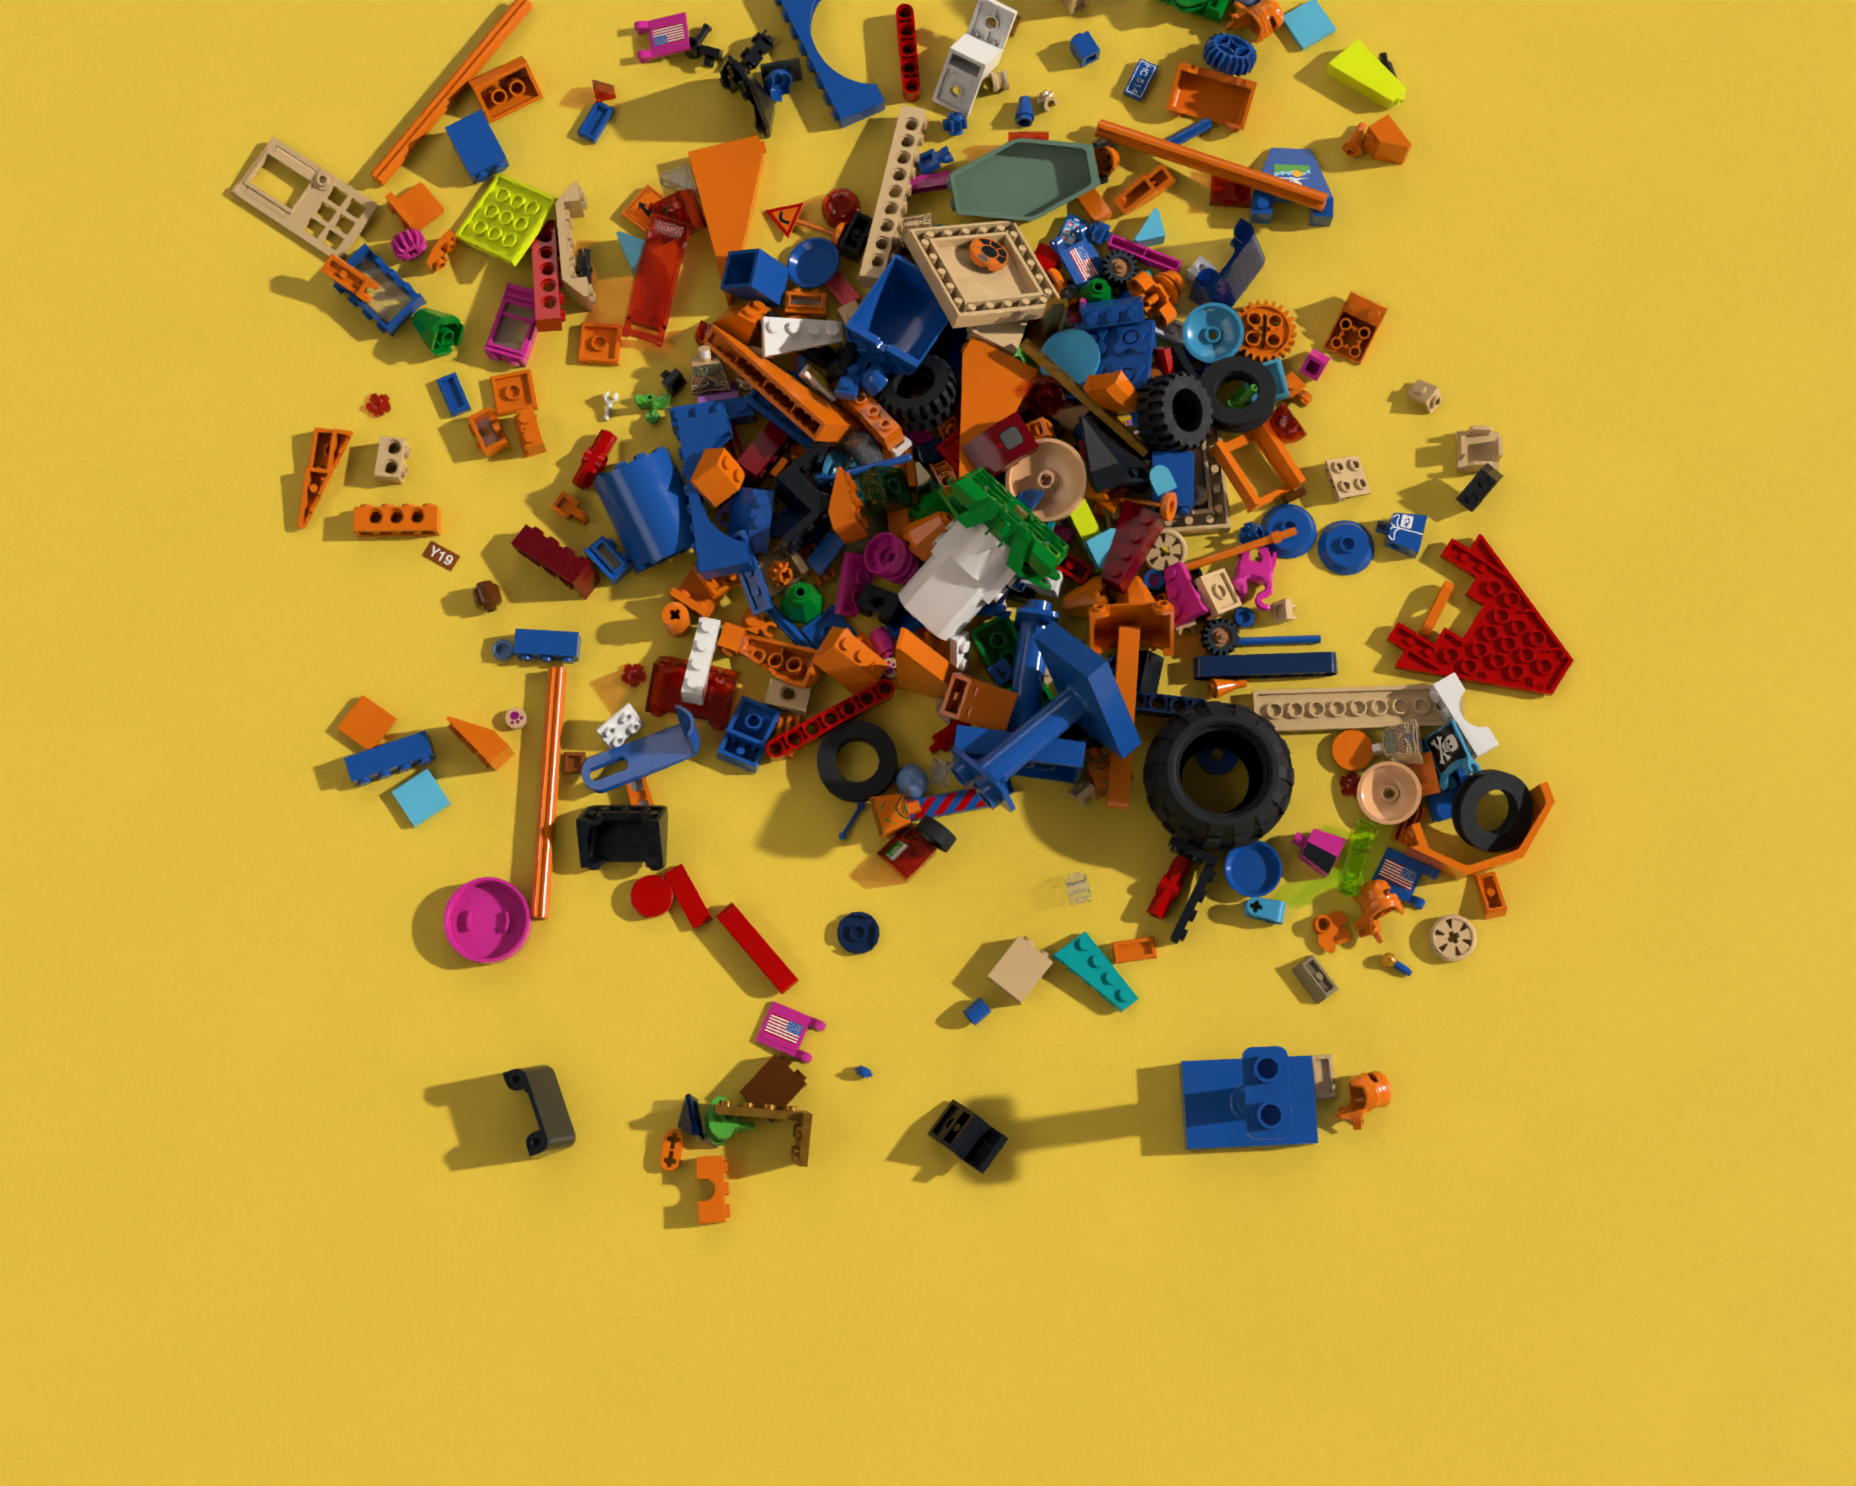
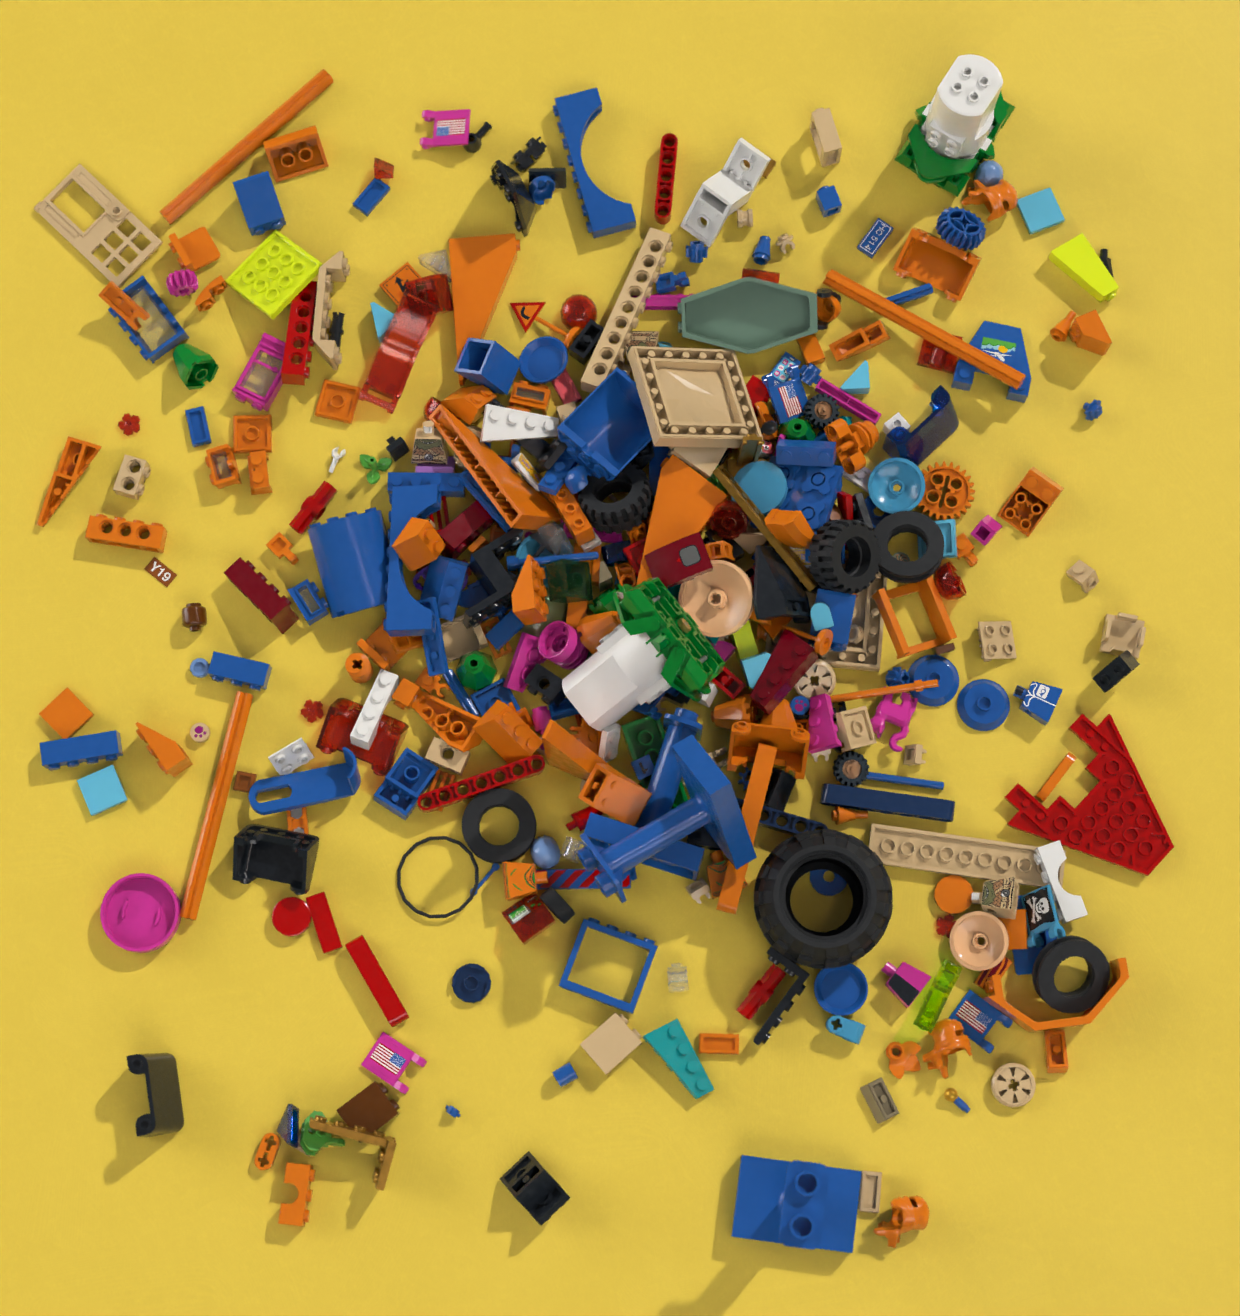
camera: 15 degrees right, 0 degrees up
(710, 54) = (486, 151): black tile -> none
(779, 792) = (401, 865): none -> black piece
(780, 573) = (460, 641): orange gear -> none
(988, 254) = (702, 379): tile -> none
(997, 922) = (595, 995): none -> blue window
(1030, 497) = (698, 612): blue tile -> none
(1241, 397) = (912, 549): bright green plant -> none
(1243, 617) = (876, 754): blue tile -> none
(1403, 221) = (1092, 410): none -> blue plant

